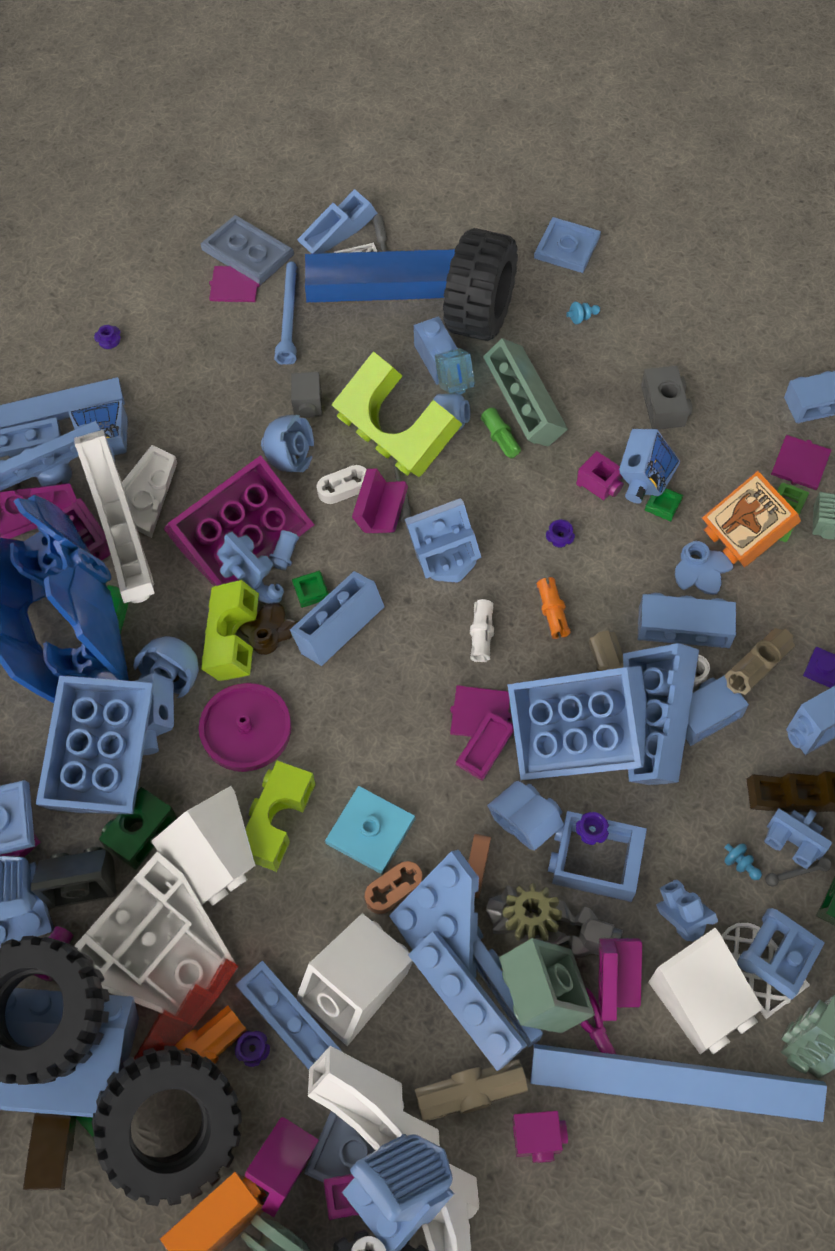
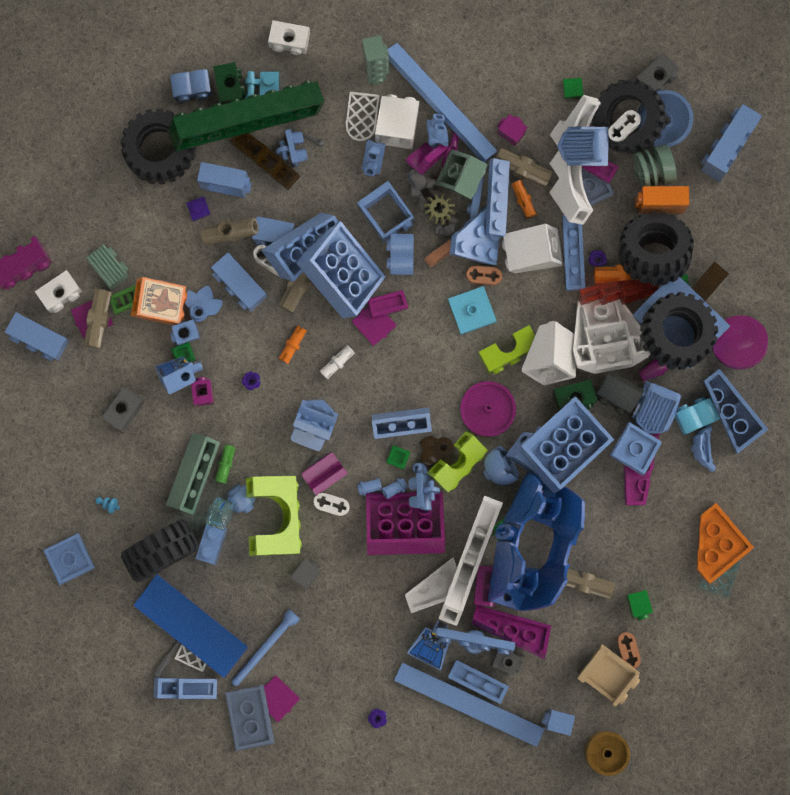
camera: 140 degrees left, 20 degrees up
(281, 1162) = (621, 198): magenta panel -> none
(284, 440) = (342, 550): medium blue cylinder -> none
(316, 531) = (369, 486): none -> medium blue pin
(430, 1043) = (524, 199): none -> orange pin
(596, 820) = (376, 220): dark purple plate -> none
(638, 1028) = (437, 131): none -> medium blue hips
(685, 519) = (193, 332): none -> medium blue brick
(744, 862) = (326, 158): dark azure hair -> none
(792, 958) = (347, 105): medium blue plate -> none
(793, 457) = (98, 318): none -> dark tan piece

